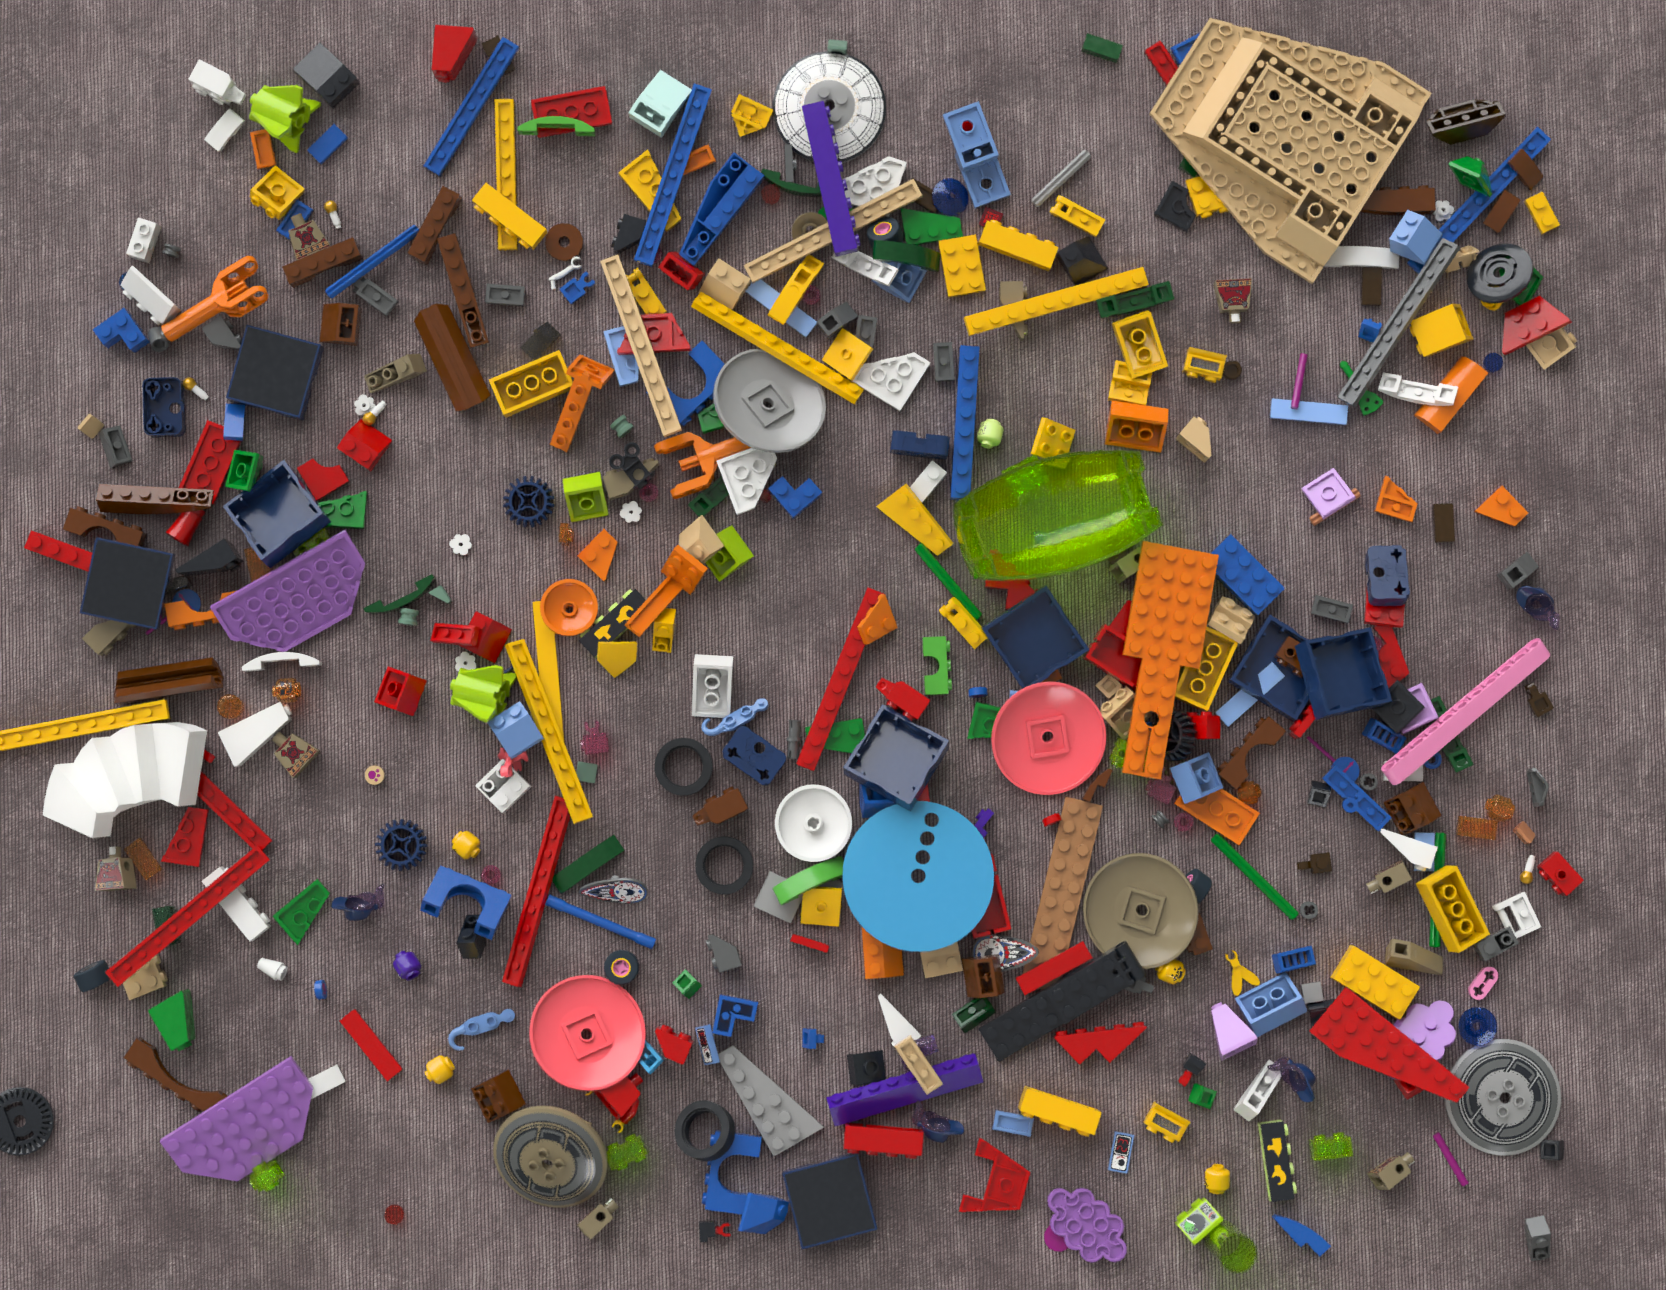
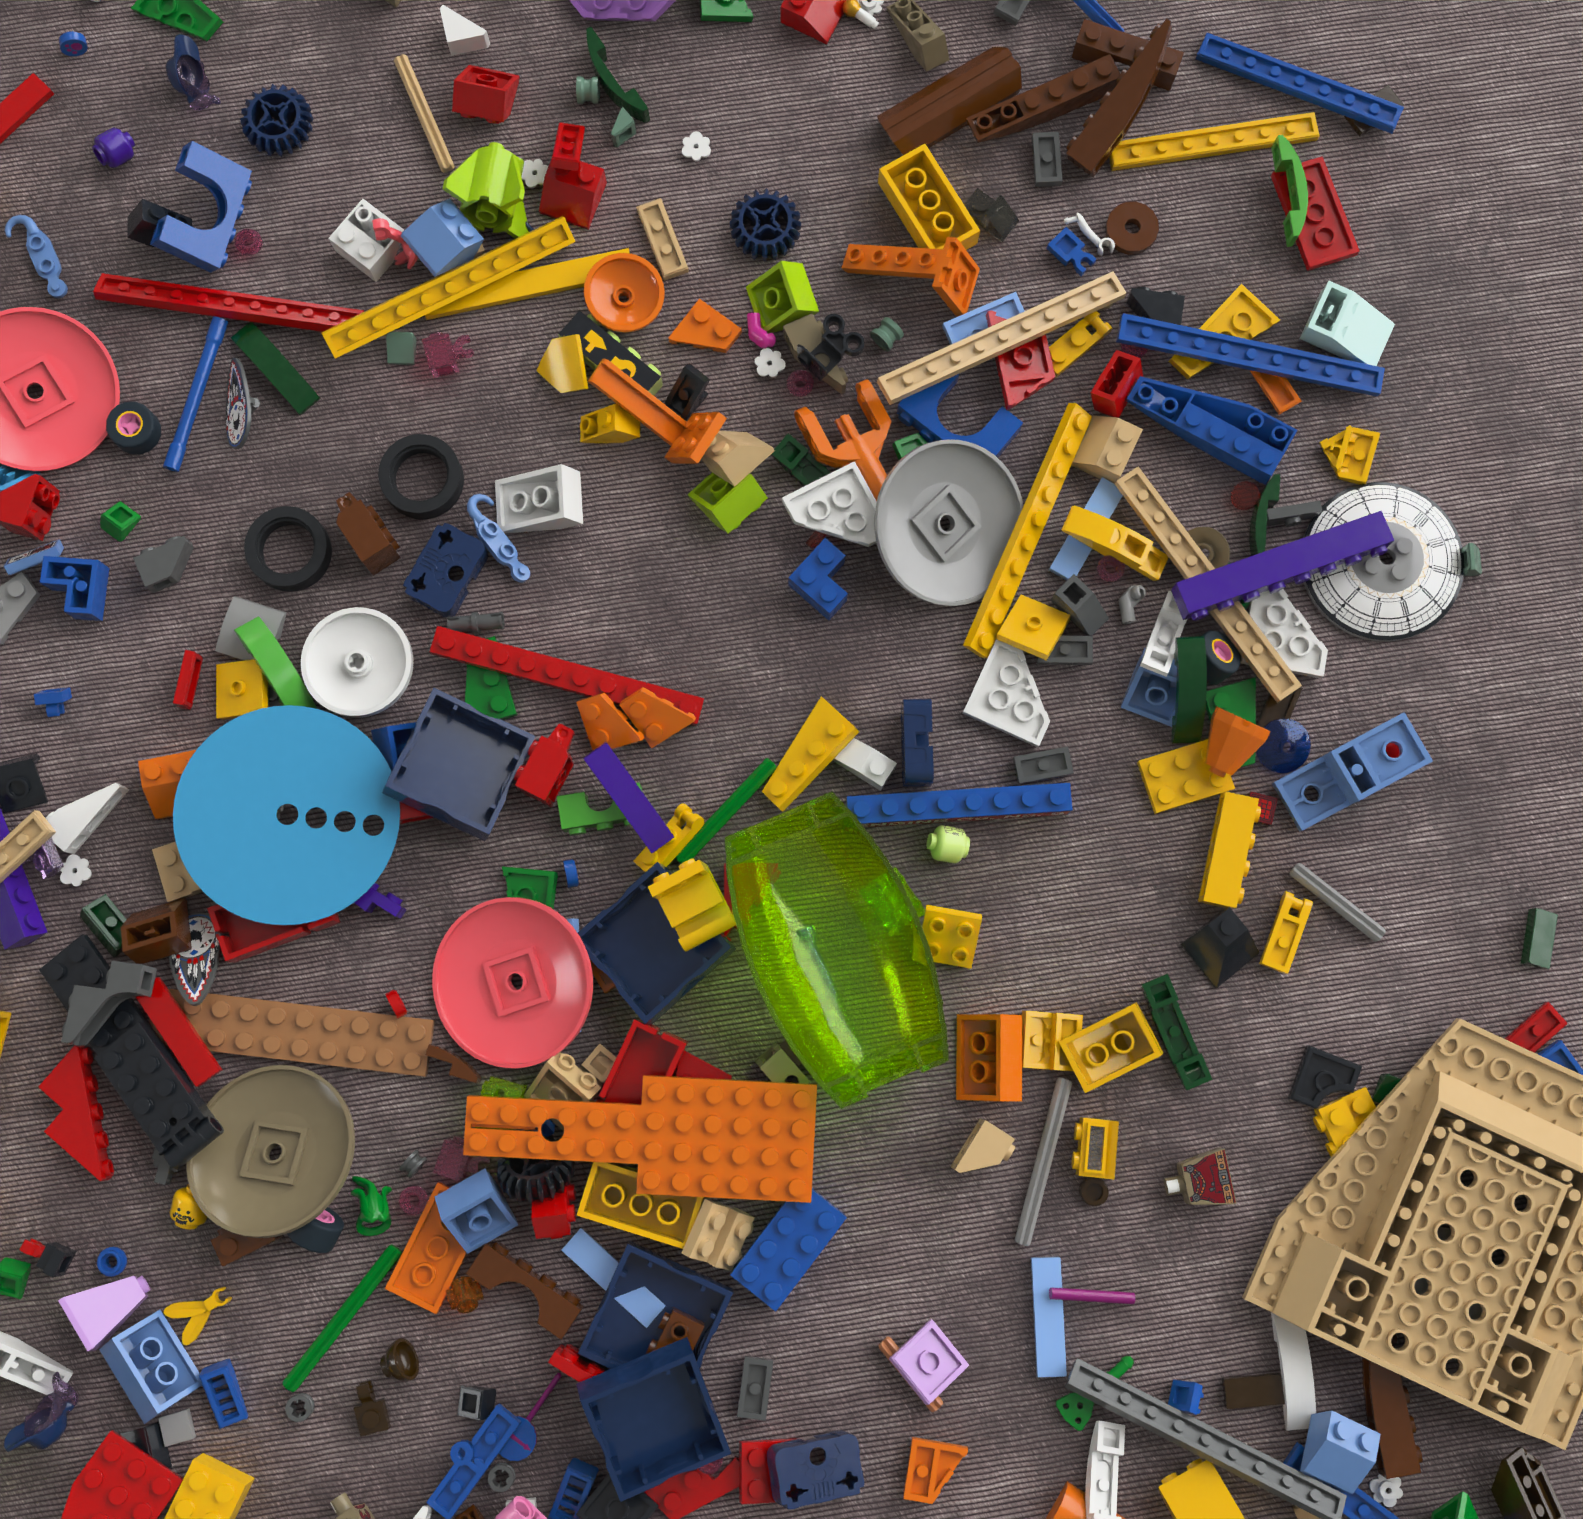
camera: 85 degrees right, 5 degrees down
(351, 704) = (462, 34): none -> white slope
(374, 775) = (369, 77): tan tile -> none
(408, 738) = (424, 113): none -> tan axle
(451, 50) = (1372, 41): red slope -> none
(466, 845) = (284, 203): yellow head -> none
(478, 238) = (1121, 106): none -> reddish brown slope
(509, 216) = (1156, 145): yellow brick -> none
(527, 577) = (662, 239): none -> tan tile
(566, 534) = (724, 274): clear orange plate -> none
(608, 518) = (757, 334): none -> dark pink arm
(647, 572) = (687, 392): none -> black slope
(835, 286) = (1128, 601): none -> light grey arm
(879, 656) = (606, 723): none -> orange wing
(934, 644) = (628, 797): none -> dark purple slope
(935, 1027) = (68, 871): none -> white plant
(946, 231) = (1232, 742): none -> orange cone
(1010, 293) = (1147, 852): dark tan slope -> none
(1016, 606) = (693, 903): none -> yellow piece
(1031, 1019) = (93, 1006): none -> dark grey arch
(1055, 301) = (1156, 915): yellow plate -> none
(1185, 847) = (372, 1207): none -> green piece
(1204, 1031) = (103, 1261): none -> blue plate
(1208, 400) = (1043, 1161): none -> light grey axle
(1287, 840) = (400, 1361): none -> dark brown piece

